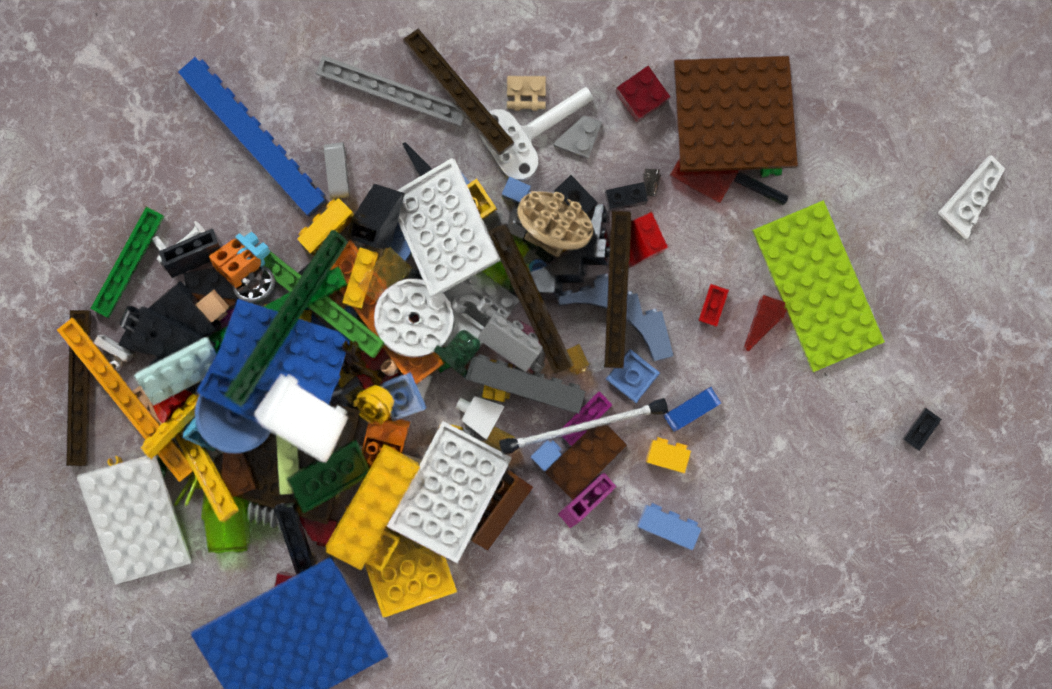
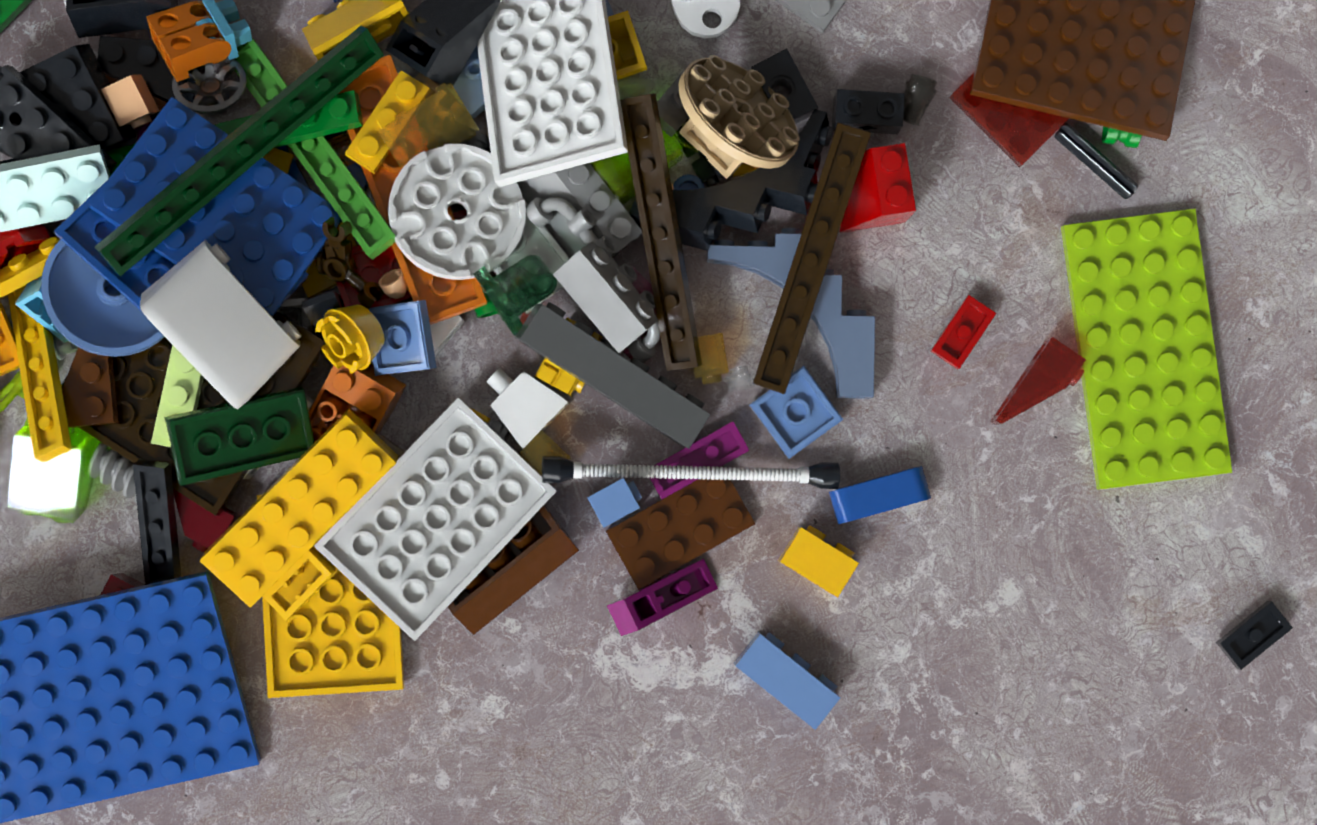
camera: 15 degrees right, 0 degrees up
(515, 190) = (685, 48): medium blue brick -> none

